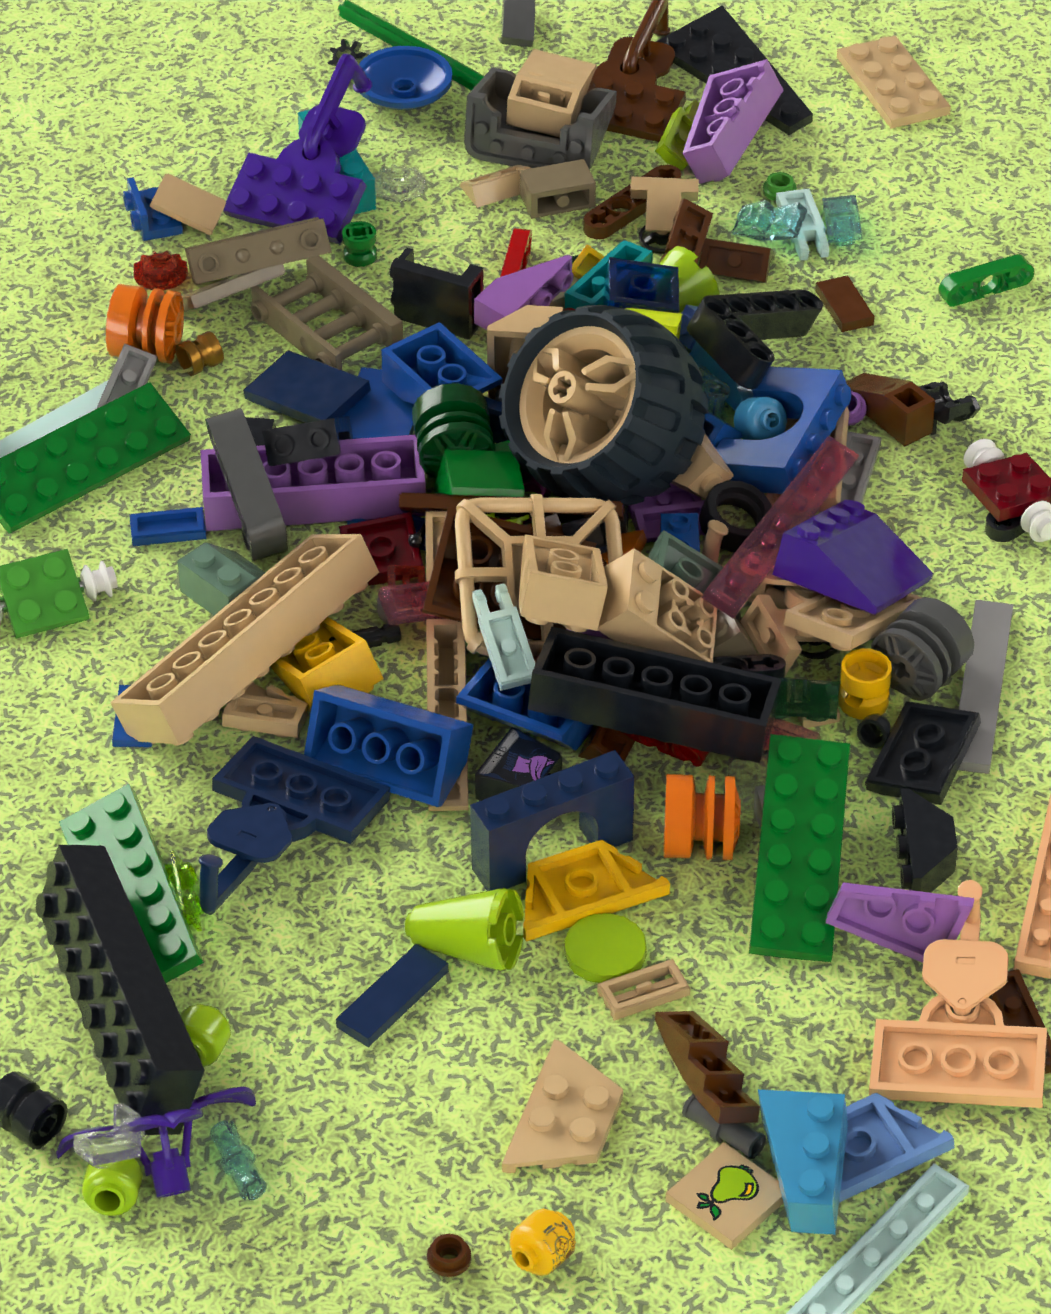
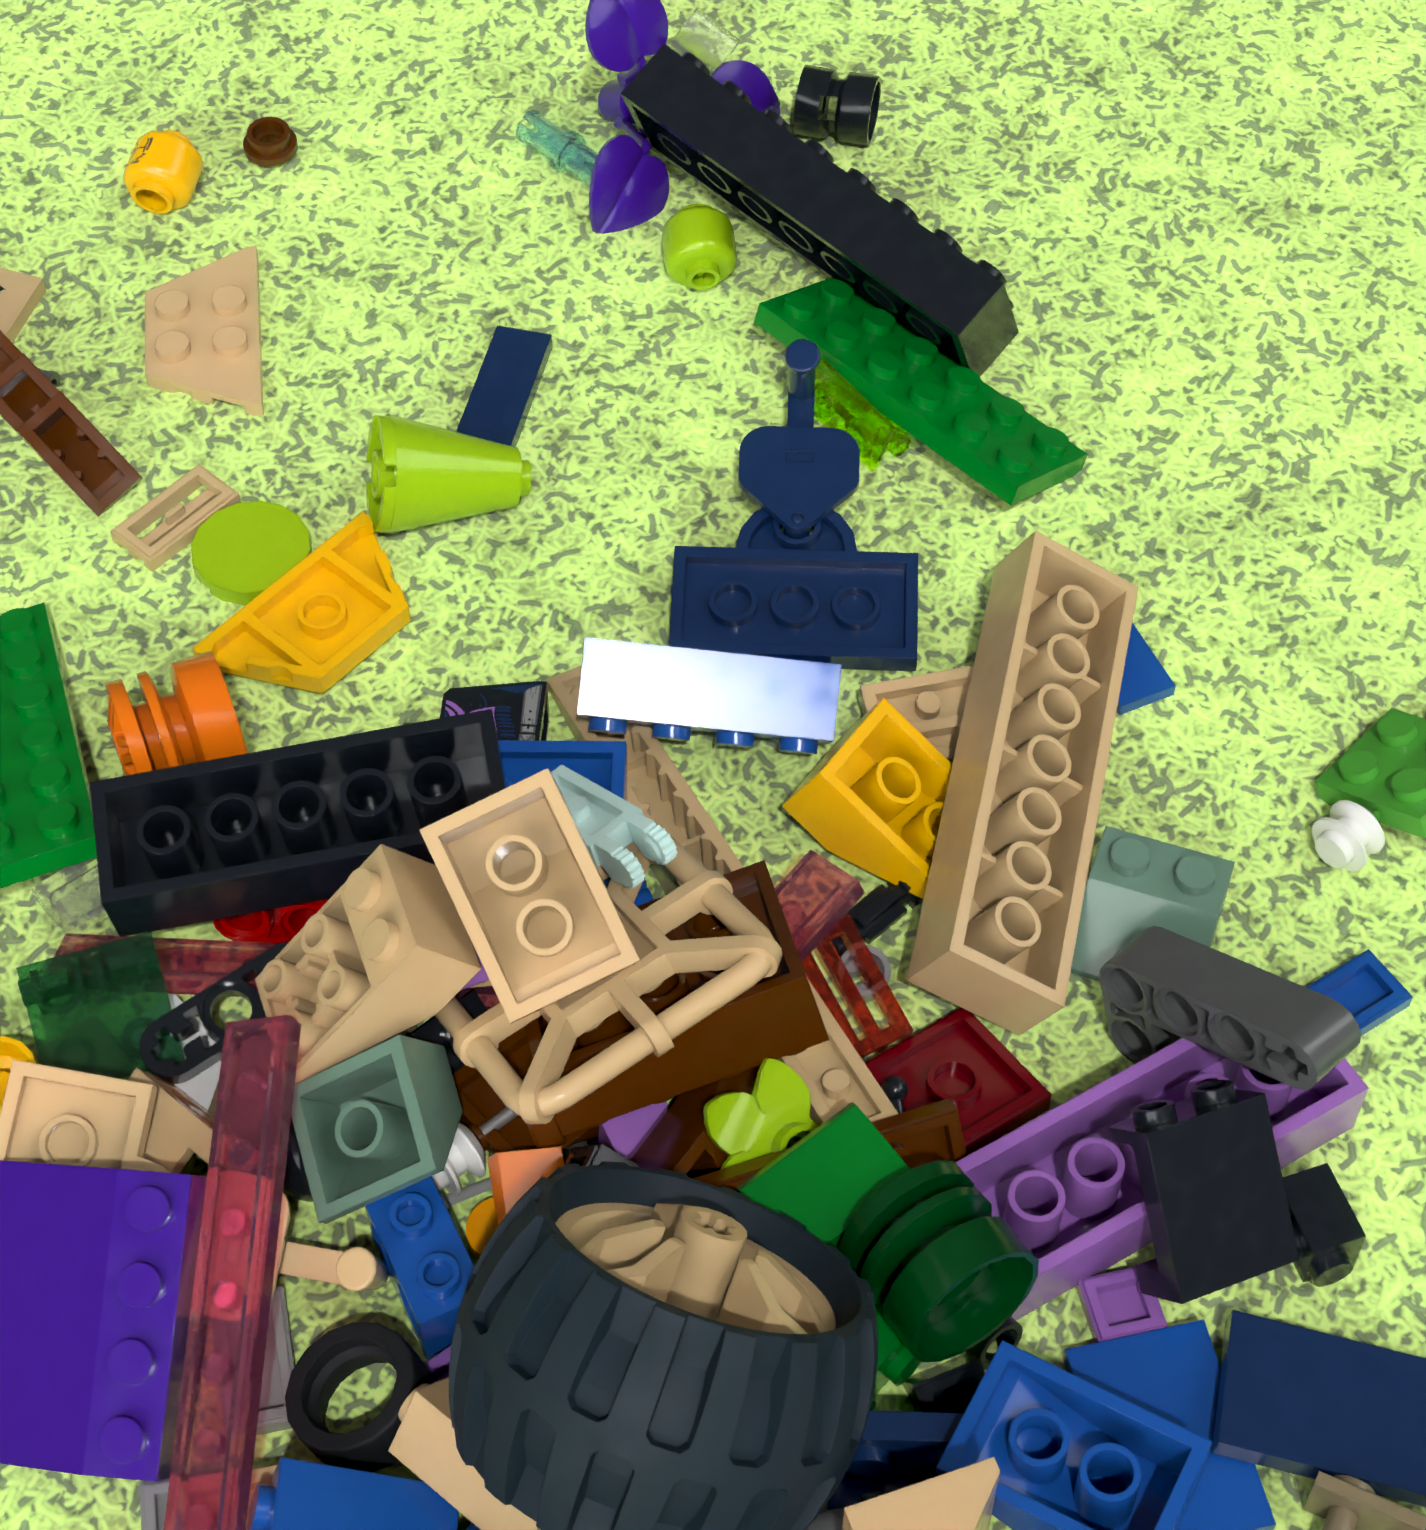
camera: 155 degrees right, 10 degrees up
(508, 821) = (429, 565): dark blue arch -> none

